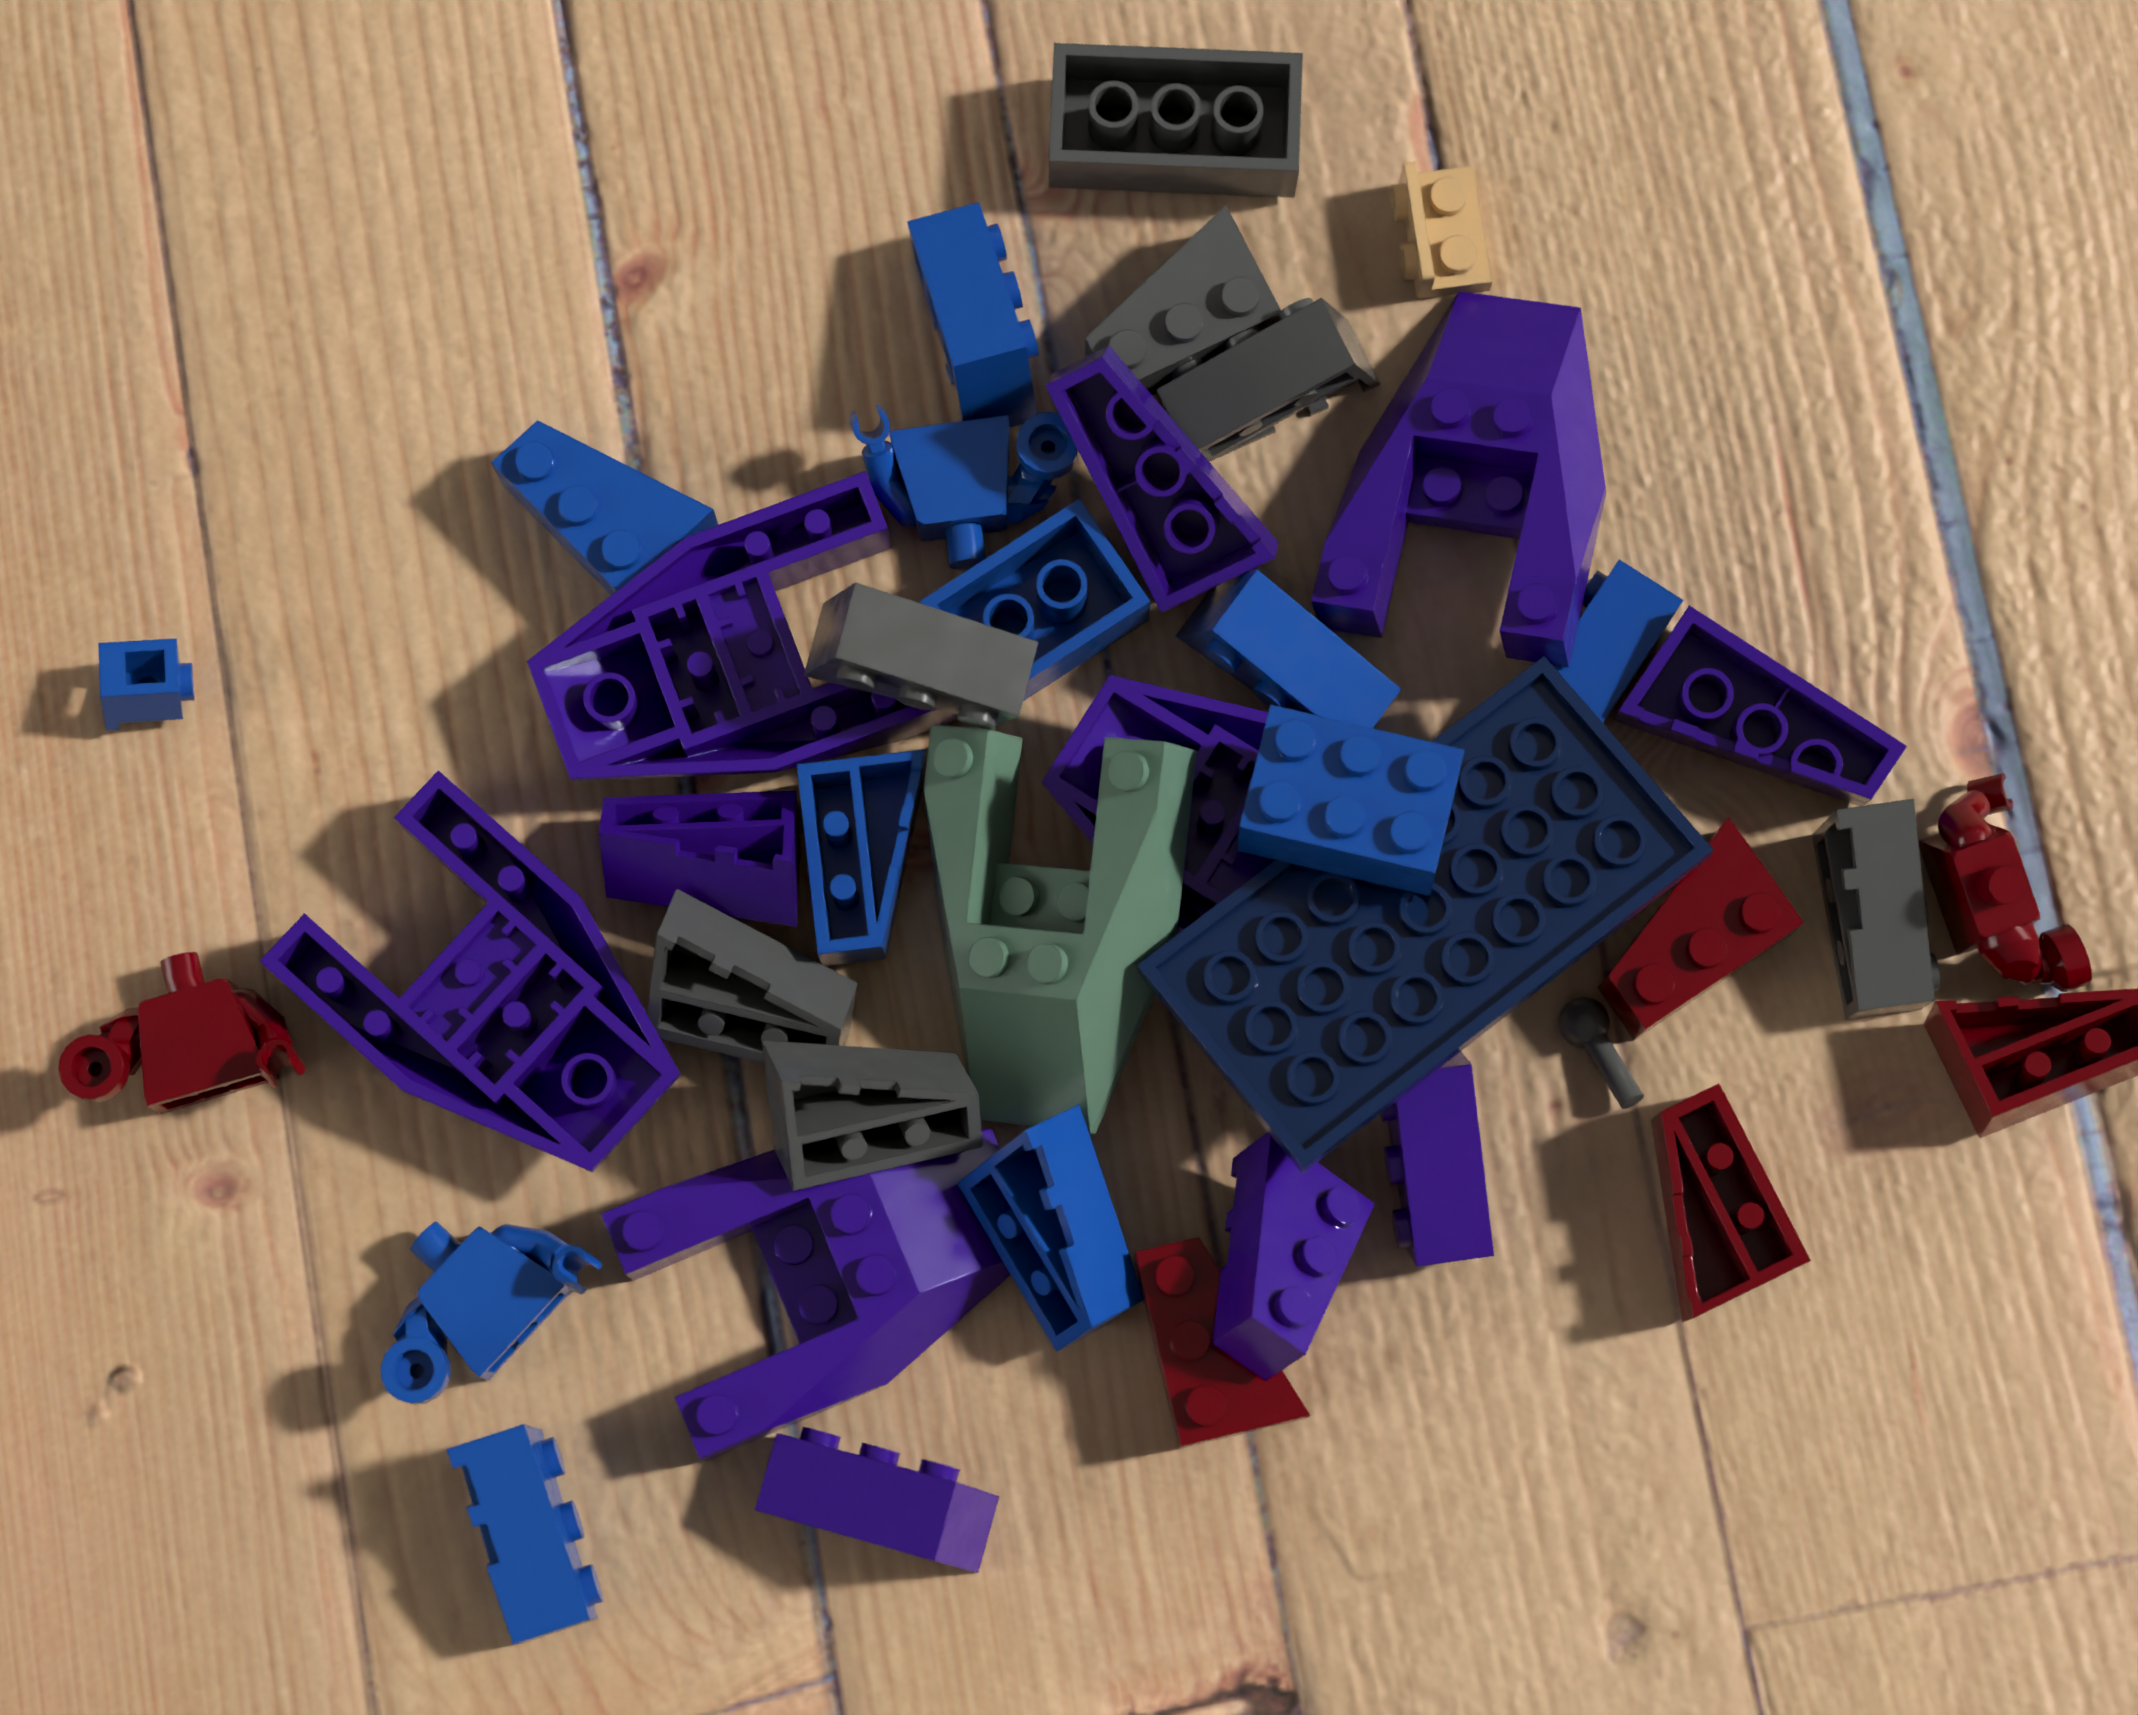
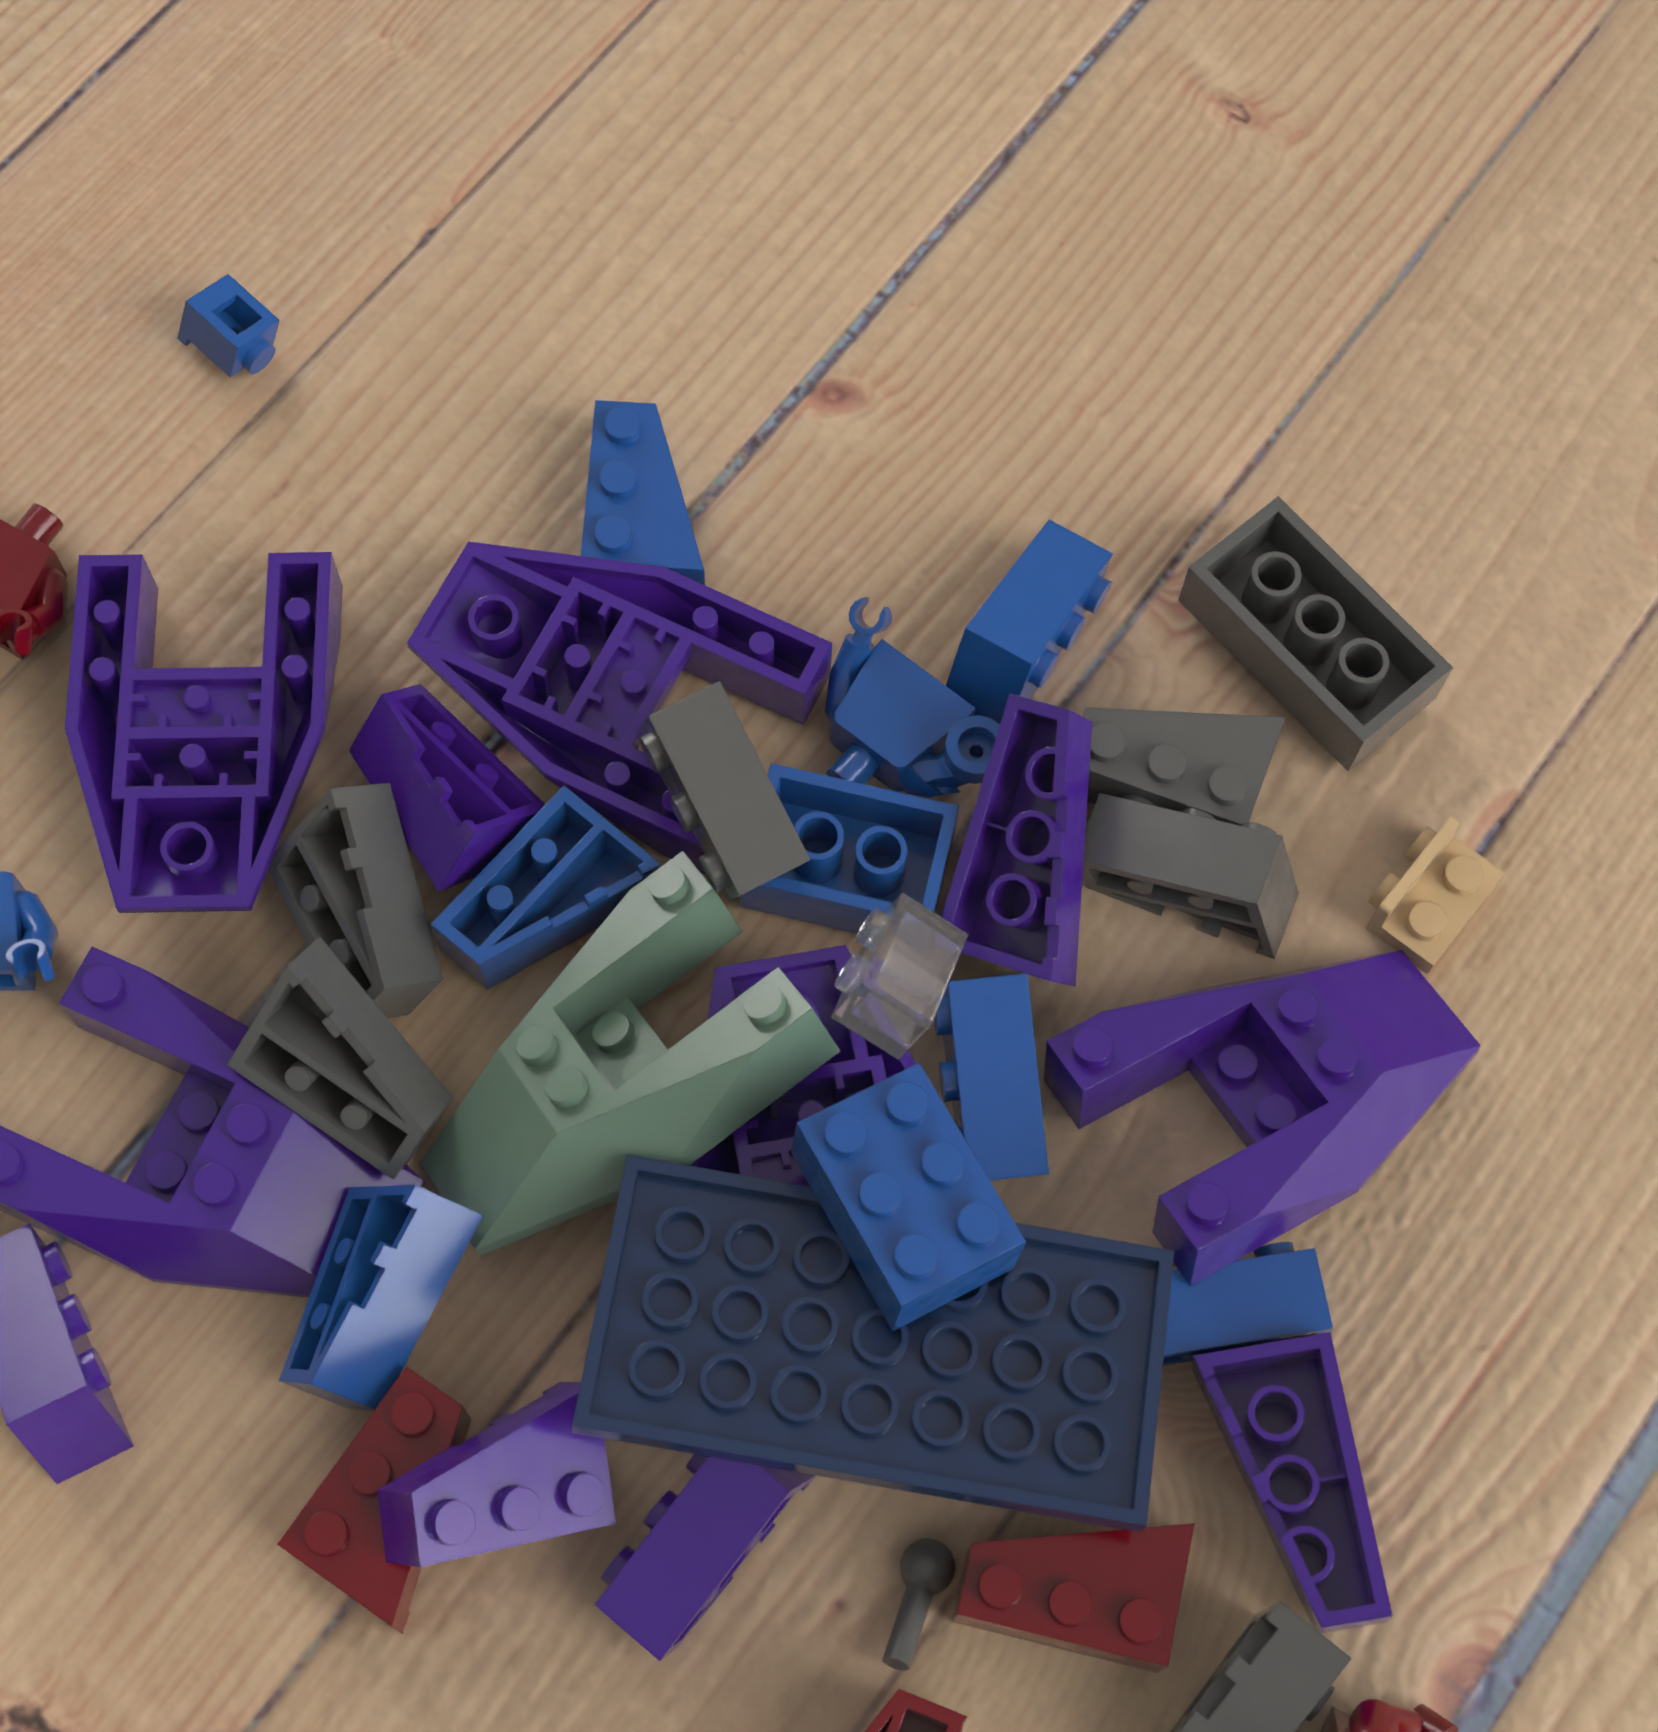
camera: 45 degrees right, 10 degrees down
(1173, 658) = (898, 975): none -> clear brick

